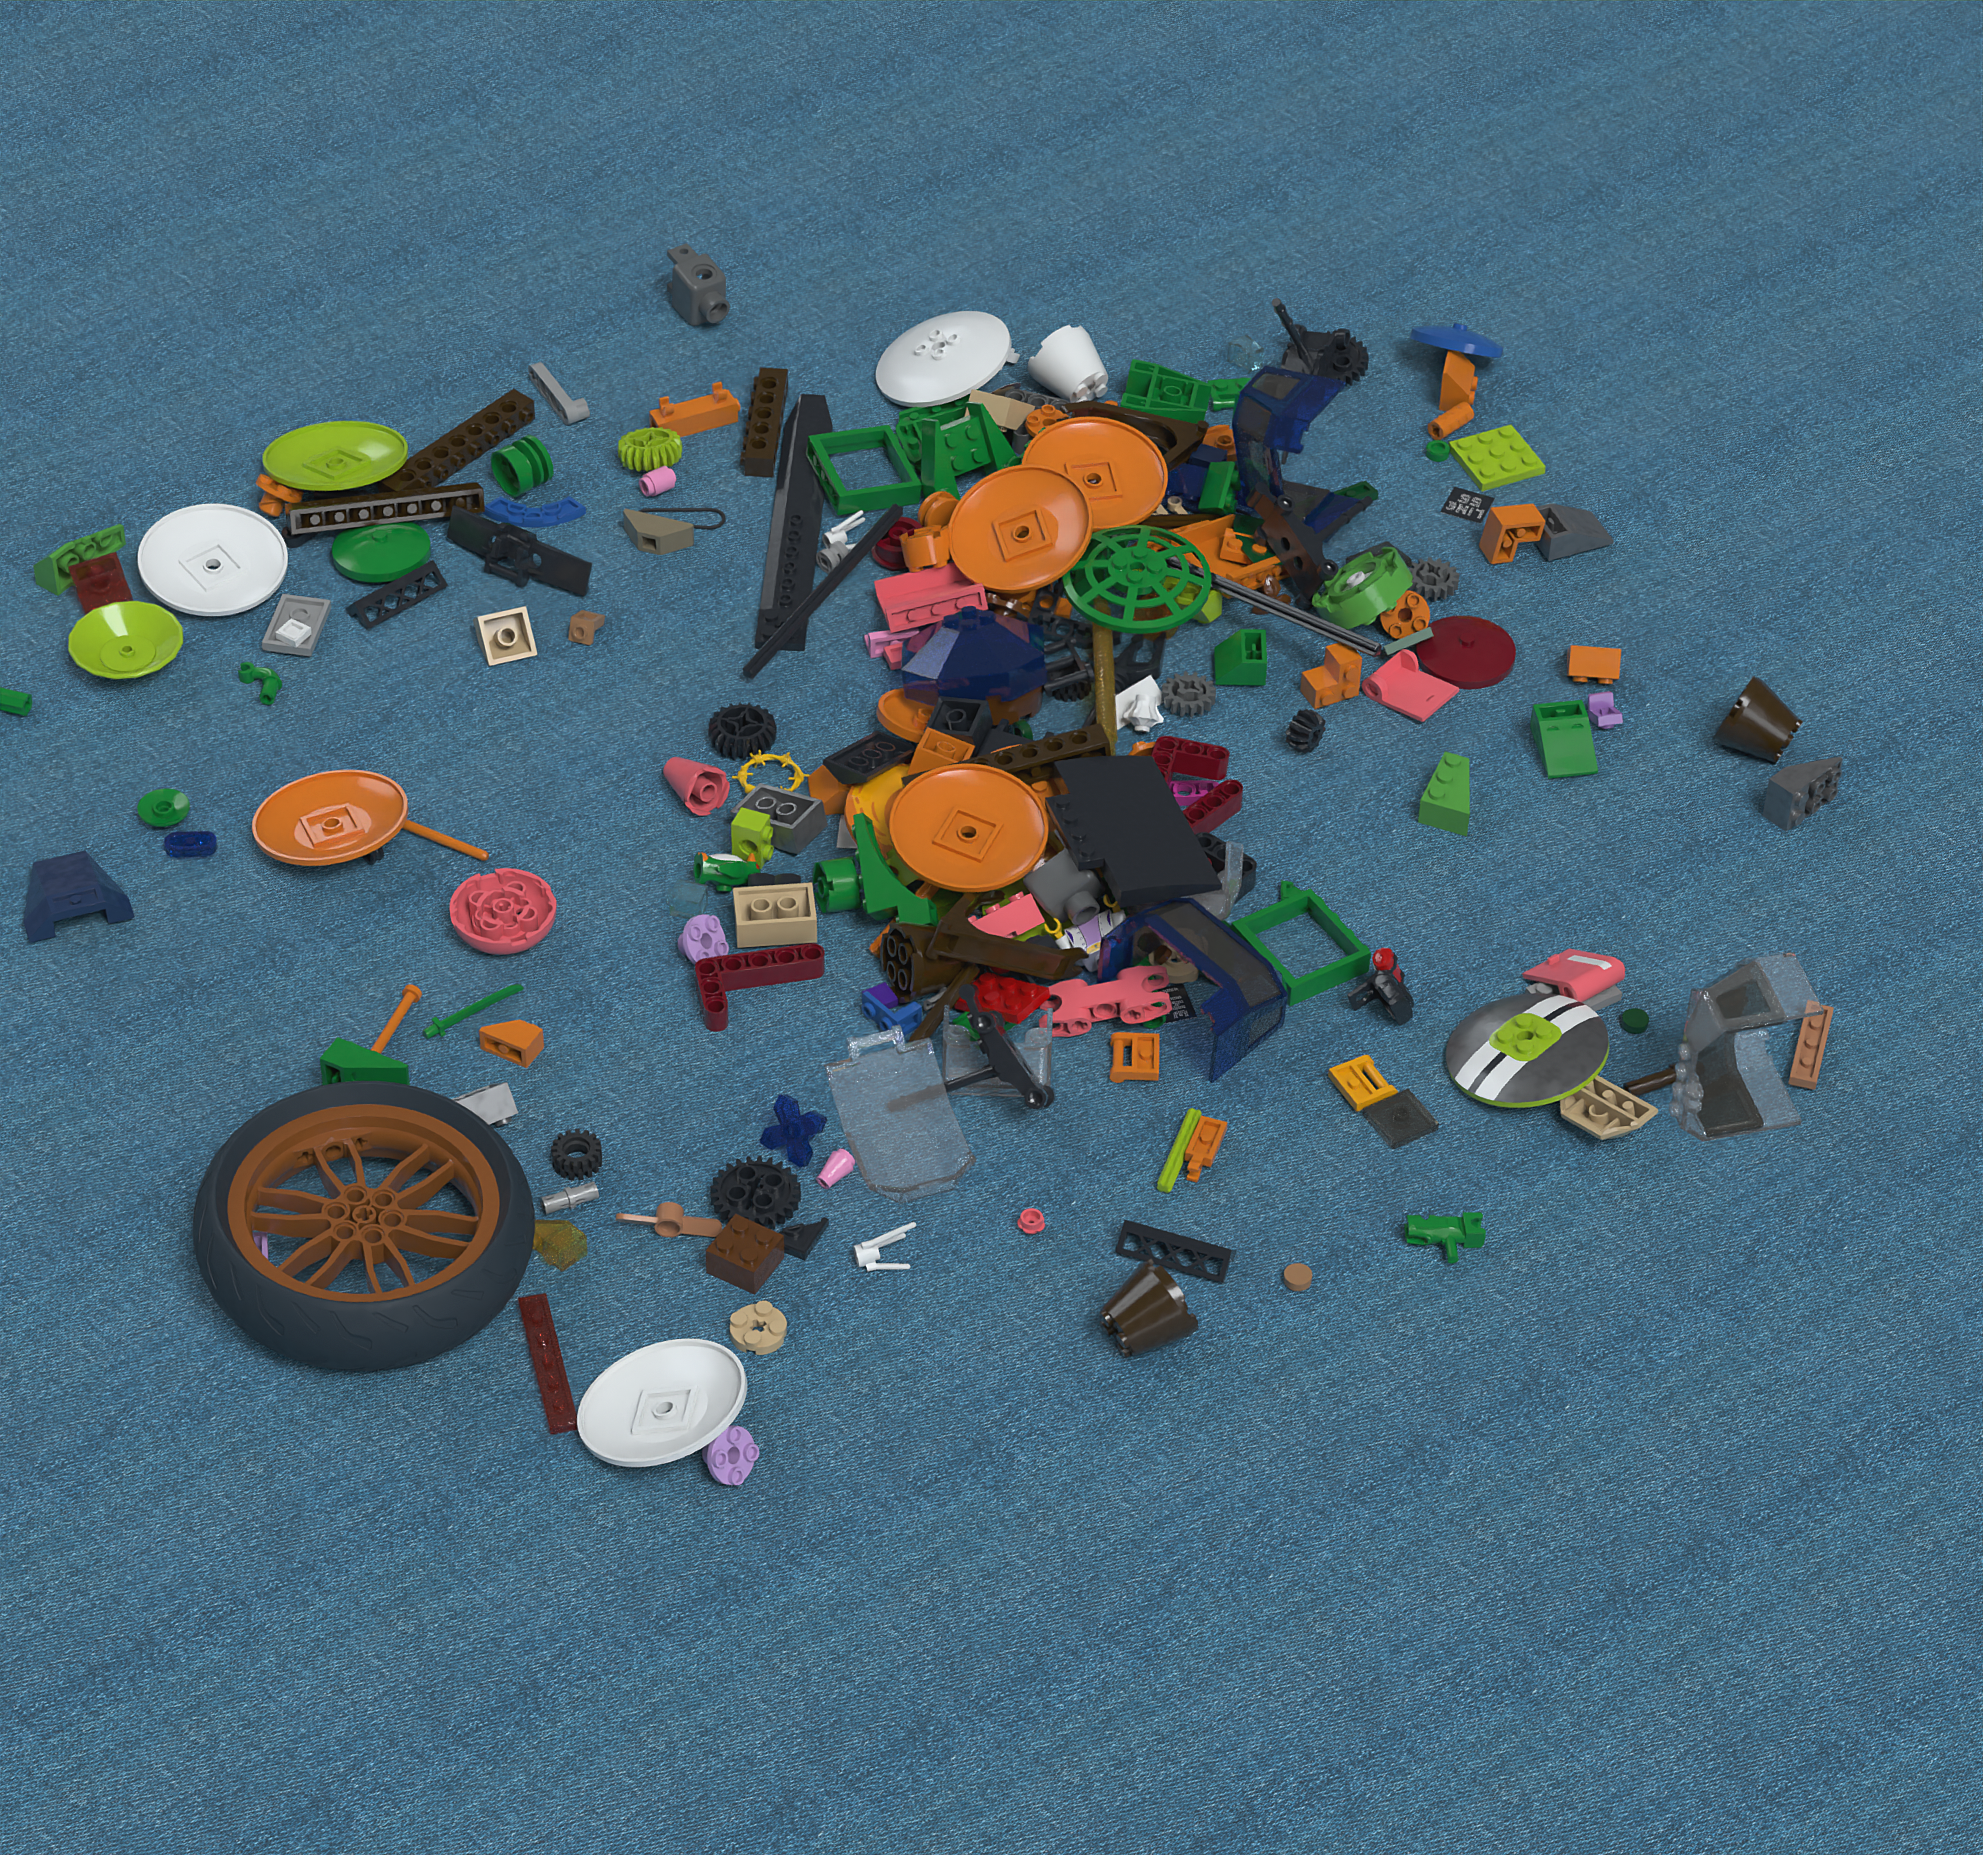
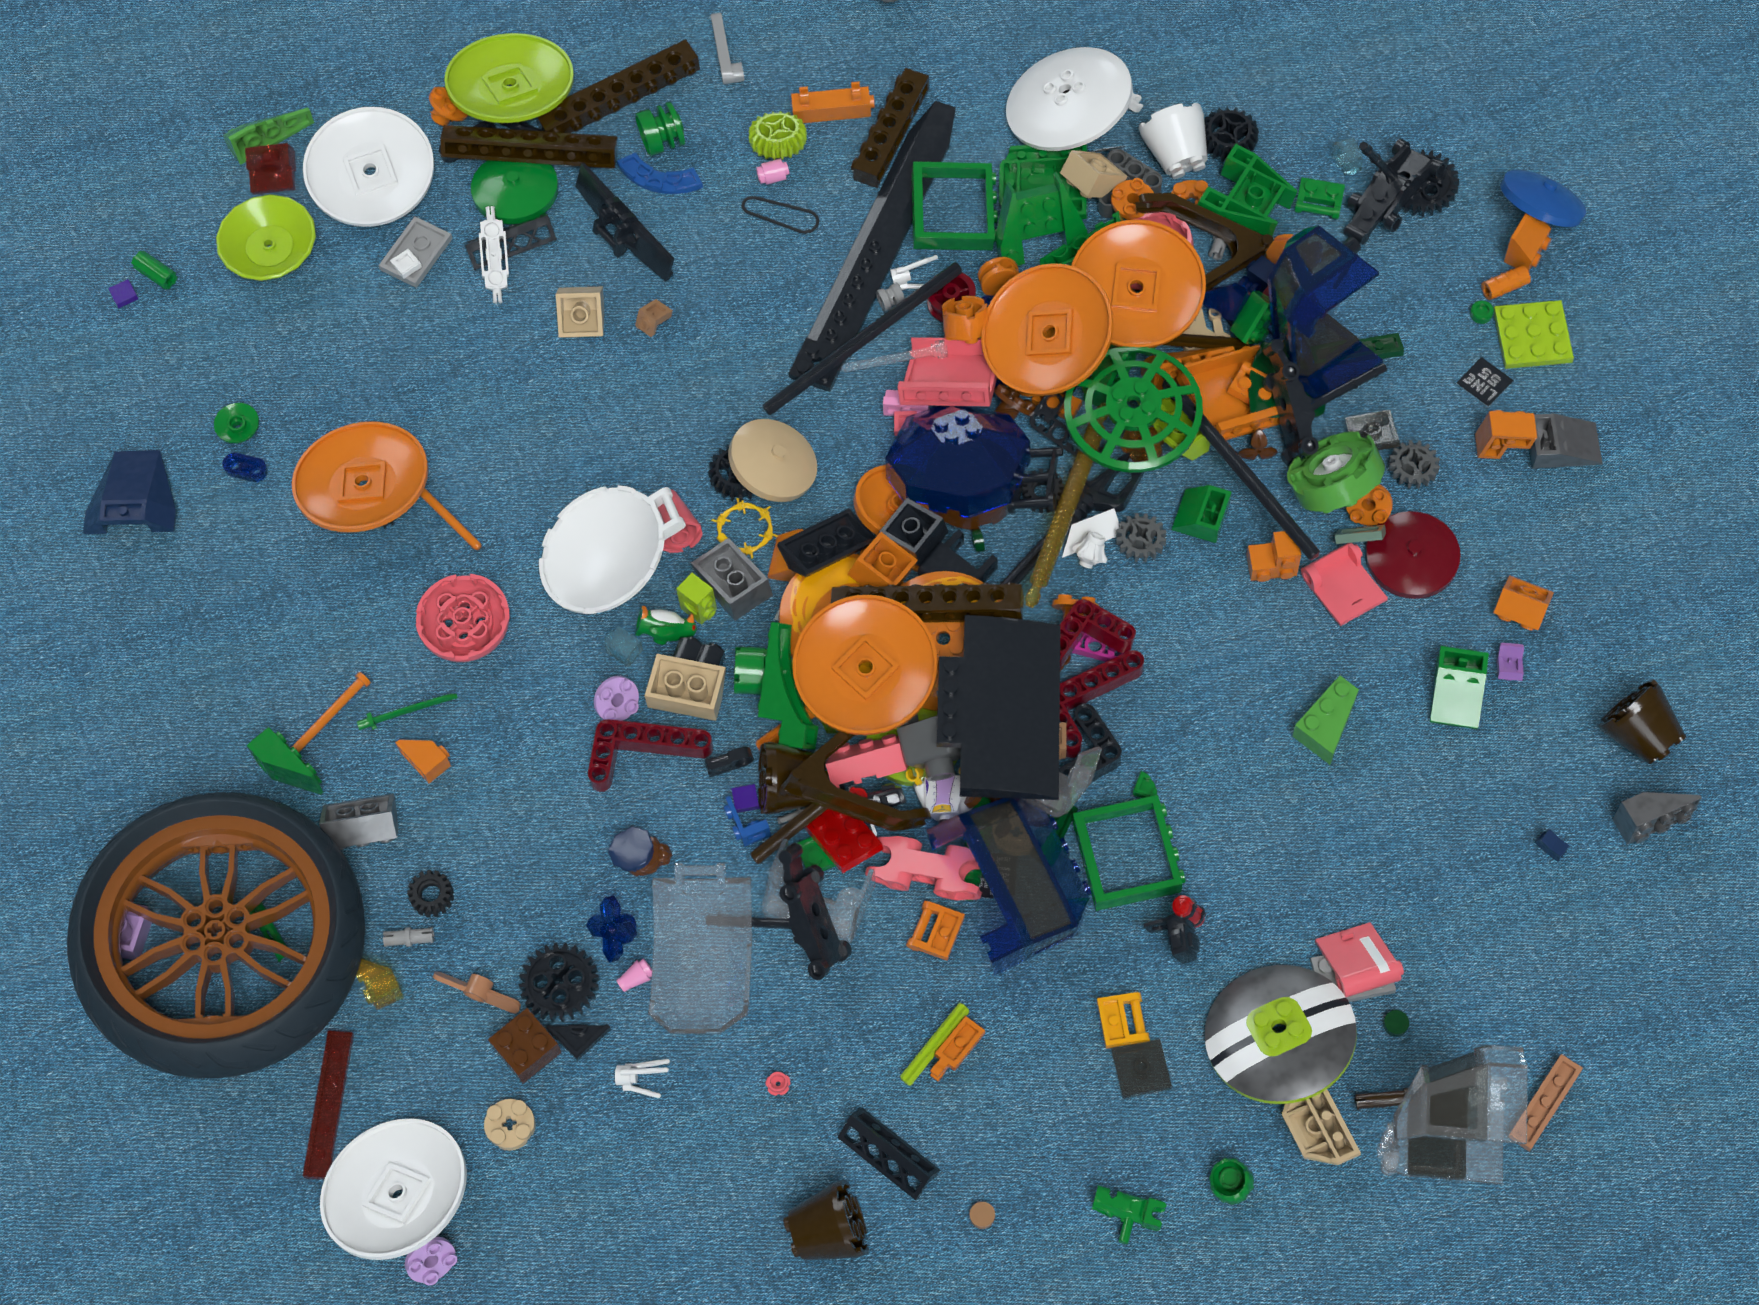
camera: 25 degrees right, 20 degrees up
(270, 680) = (372, 308): green piece -> none
(382, 584) = (492, 232): none -> white piece
(633, 814) = (606, 547): none -> white dish
(657, 533) = (750, 229): dark tan slope -> none
(776, 708) = (772, 460): none -> tan dish
(789, 1063) = (638, 852): none -> dark blue piece
(848, 970) = (730, 761): none -> black piece
(906, 583) = (938, 349): none -> clear piece
(1117, 356) = (1233, 127): none -> black gear
(1305, 731) = (1226, 612): black gear -> none
(1538, 1179) = (1231, 1181): none -> green hair
(1715, 845) = (1552, 844): none -> dark blue piece

